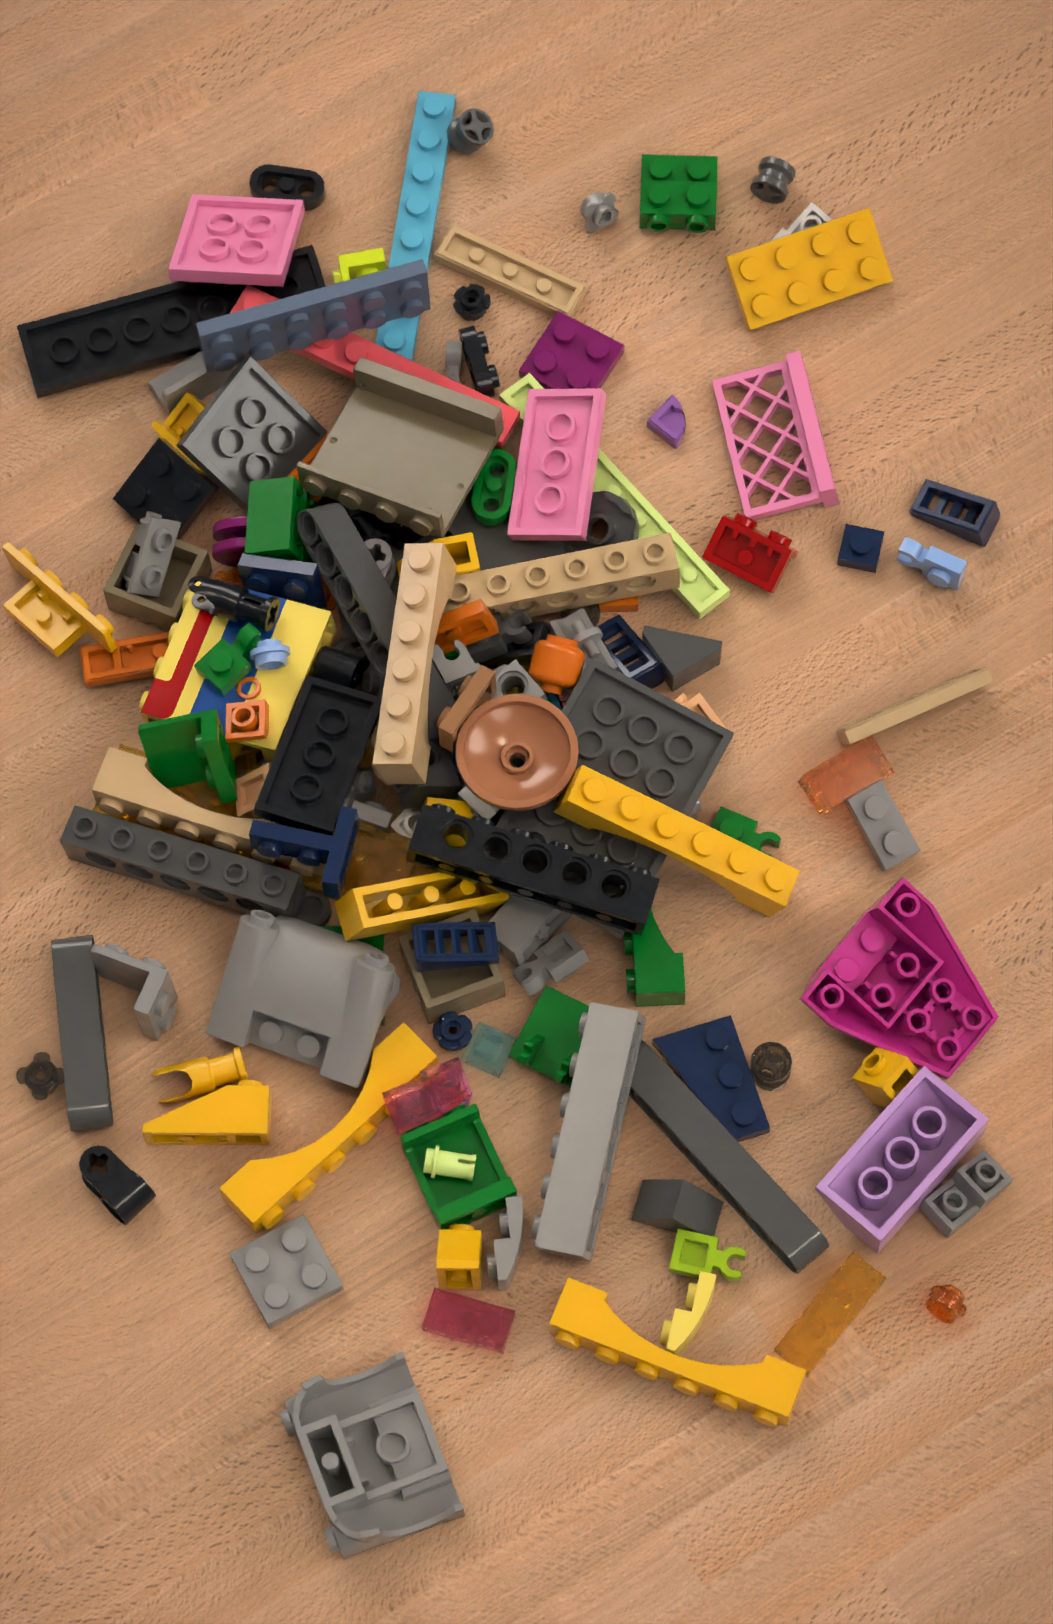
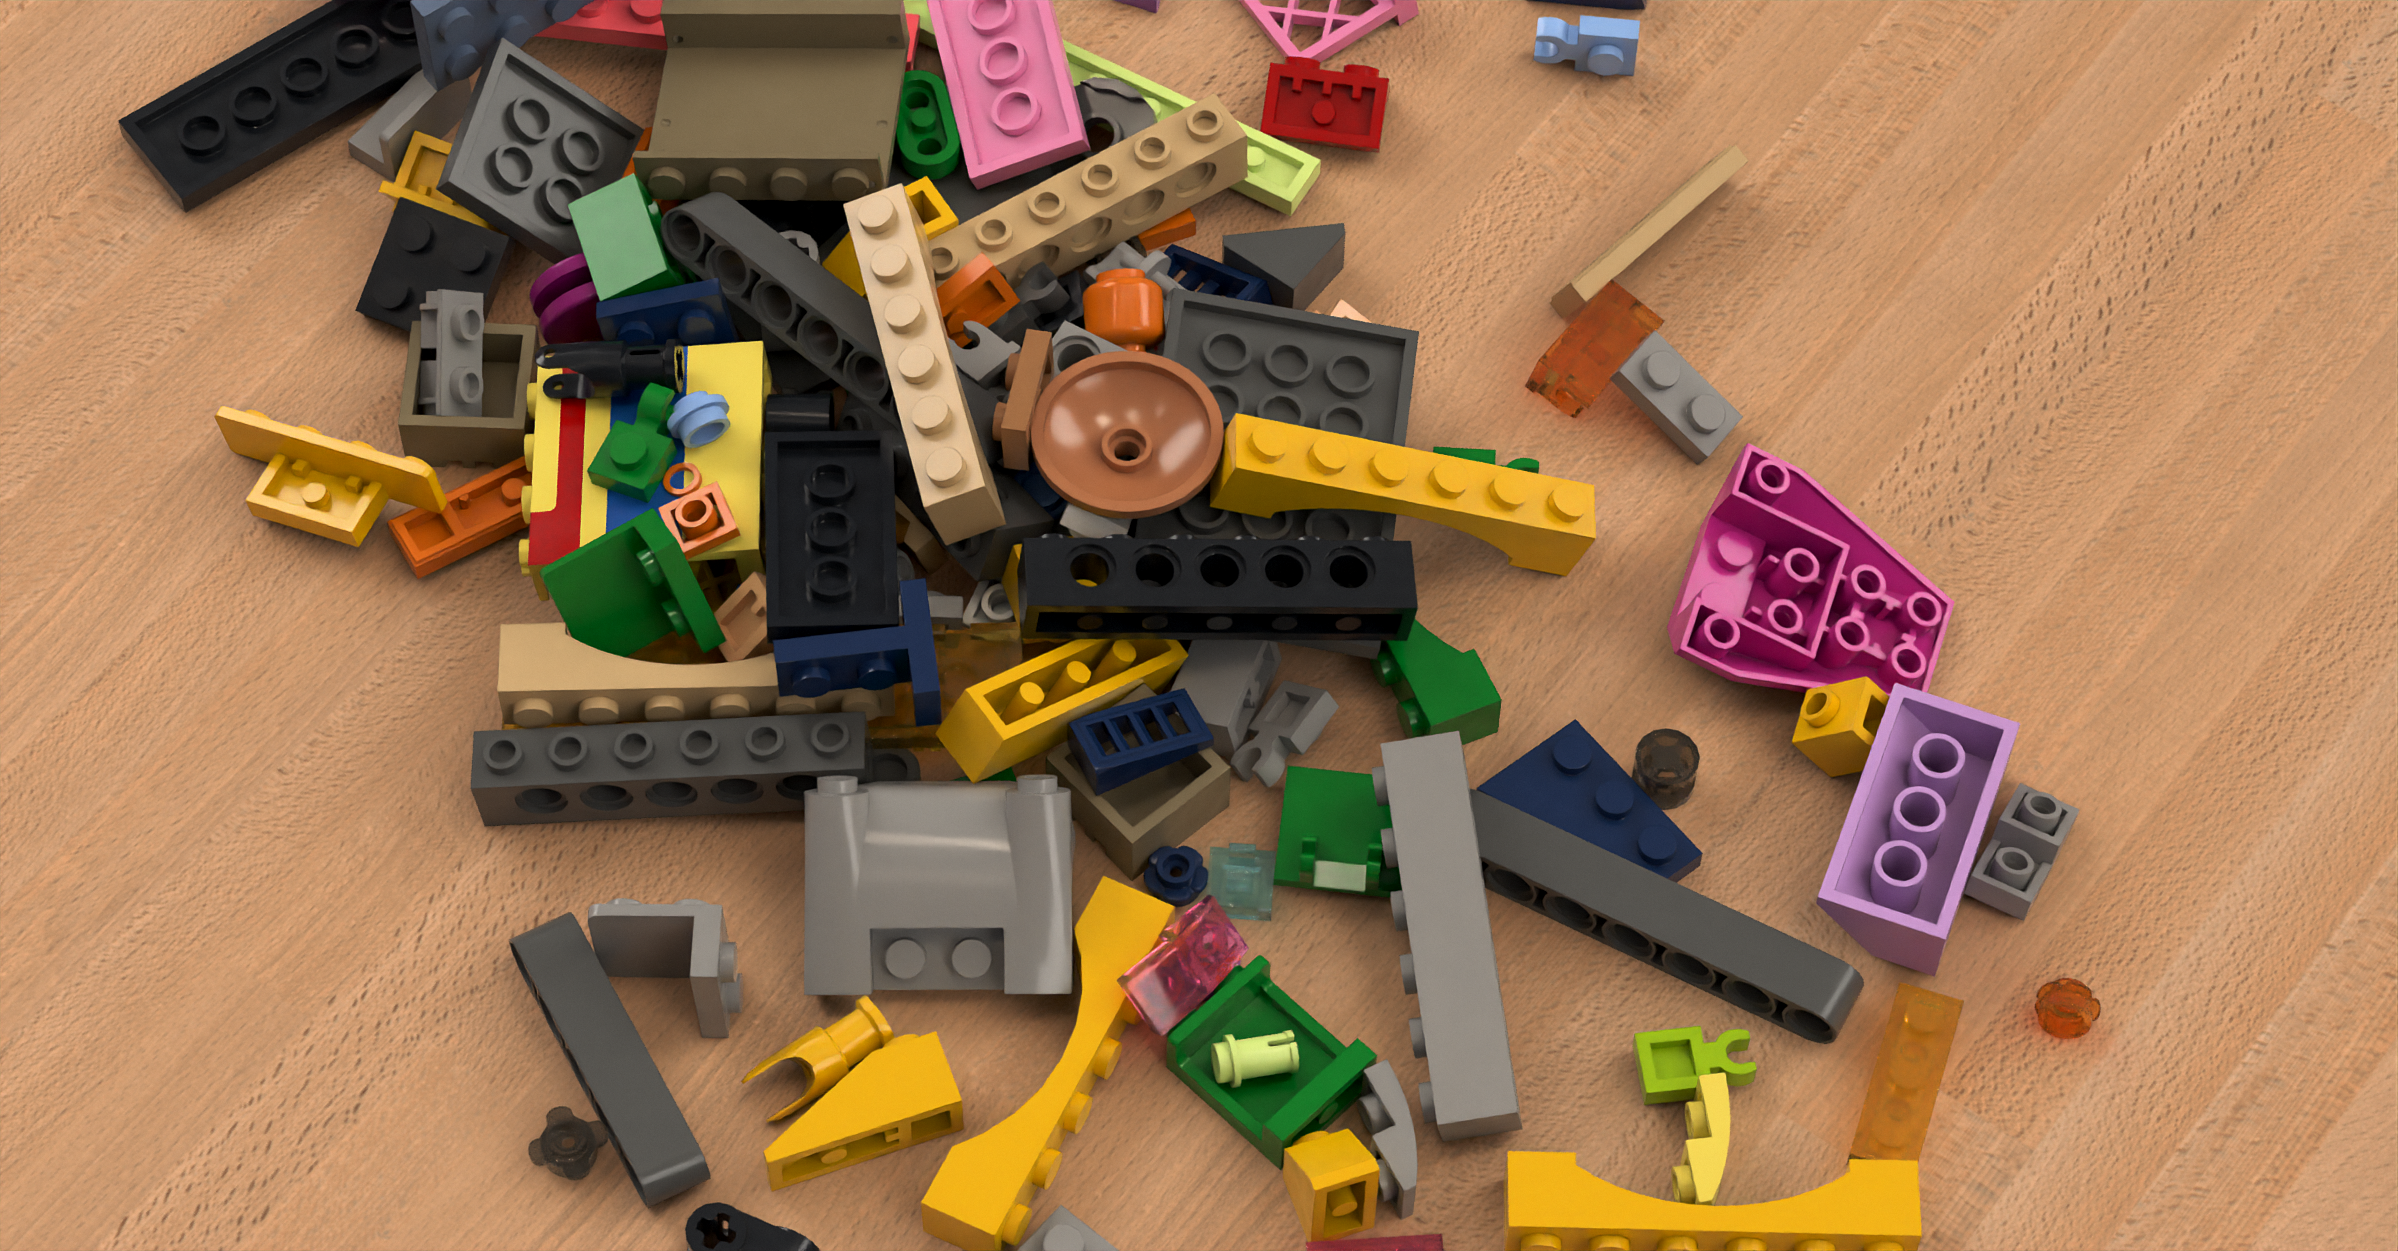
camera: 25 degrees left, 10 degrees down
(677, 1205) = (1611, 1004): dark grey slope -> none
(860, 548) = (1476, 59): dark blue plate -> none

